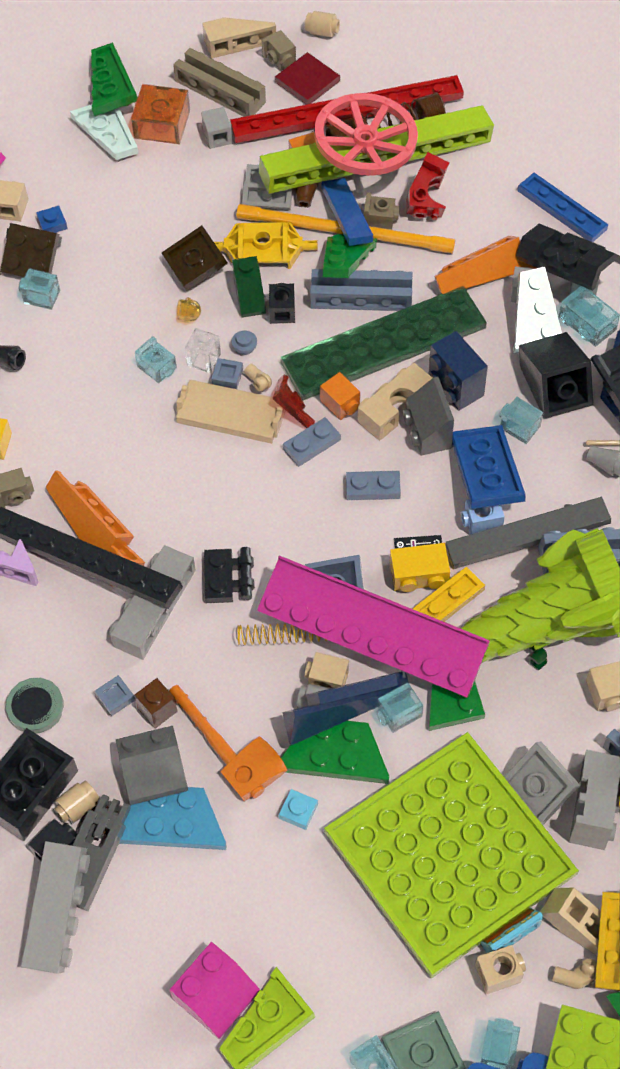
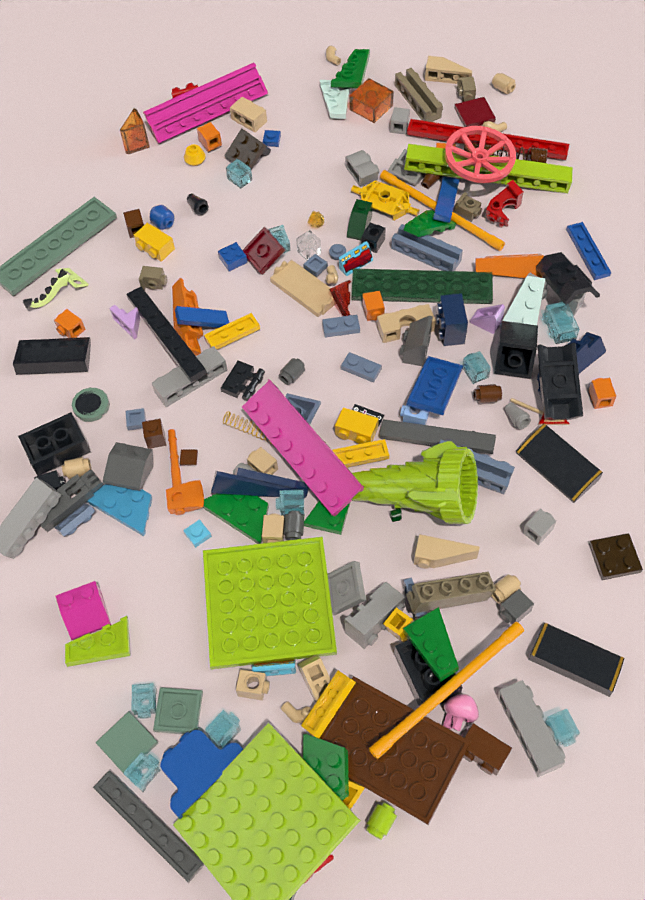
camera: 30 degrees right, 0 degrees up
(62, 72) = (330, 55): none -> tan arm
(104, 410) = (232, 256): none -> blue piece
(120, 874) = (79, 516): none -> sand blue plate
(121, 512) = (201, 317): none -> blue tile
(145, 383) = (263, 250): none -> dark red tile
(171, 514) = (232, 331): none -> yellow plate
(194, 258) = (337, 190): dark brown plate -> none
(202, 209) = (361, 167): none -> light grey brick
(220, 713) = (188, 457): none -> reddish brown piece
(275, 342) = (355, 258): none -> slope
(288, 532) = (292, 371): none -> dark grey brick
(341, 89) = (499, 127): none -> tan arm
(398, 753) = (273, 528): none -> tan brick
(421, 736) = (293, 525): none -> dark grey brick
(497, 347) = (488, 318): none -> lavender slope
(556, 448) = (487, 393): none -> reddish brown brick

